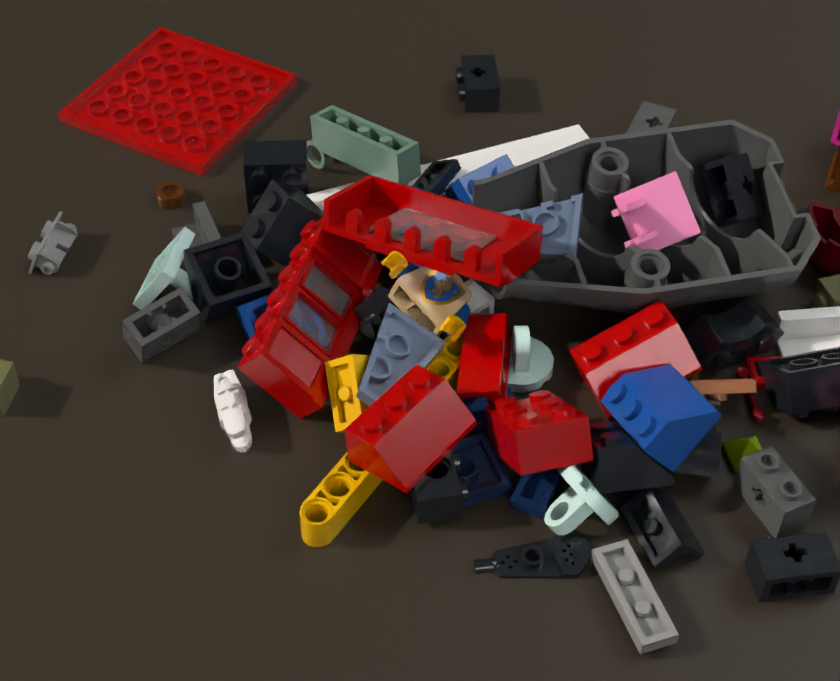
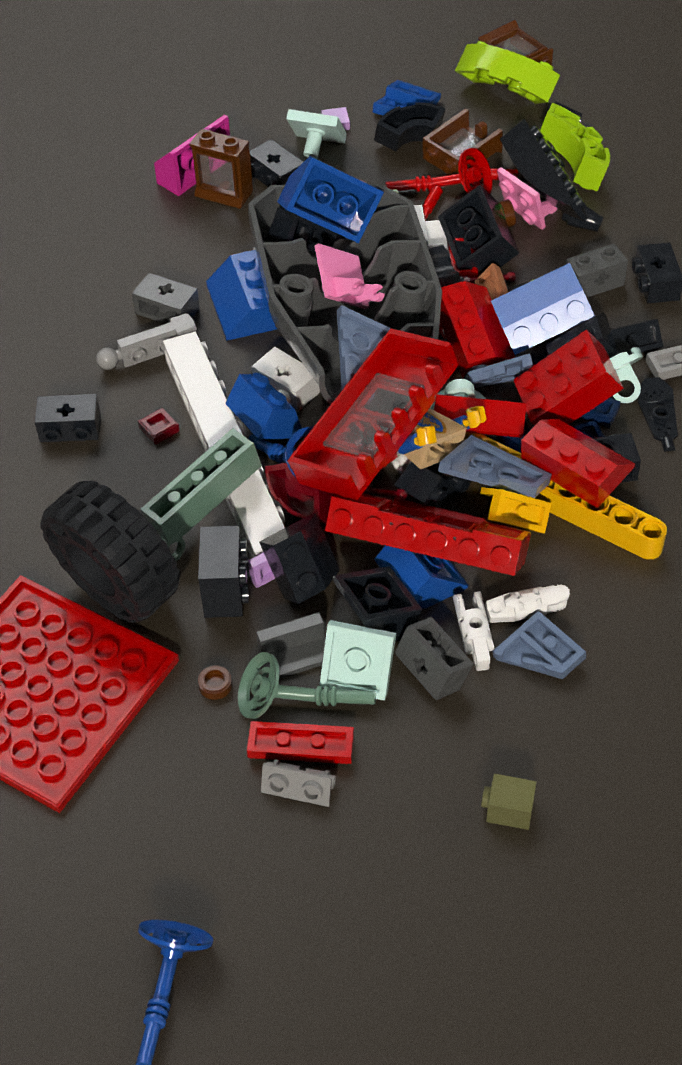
camera: 85 degrees left, 5 degrees up
(90, 246) = (300, 742): none -> red plate
(148, 215) = (269, 688): none -> sand green dish
(174, 420) = (541, 648): none -> sand blue wing
(200, 365) = (475, 630): none -> white hinge
(273, 80) = (110, 551): none -> black tyre
(438, 176) = (267, 443): black plate -> none
(479, 140) = (158, 426): none -> dark red tile
(568, 387) = (500, 372): none -> sand blue wing
(576, 113) = (144, 344): none -> light grey plate
(751, 181) = (330, 198): none -> blue slope

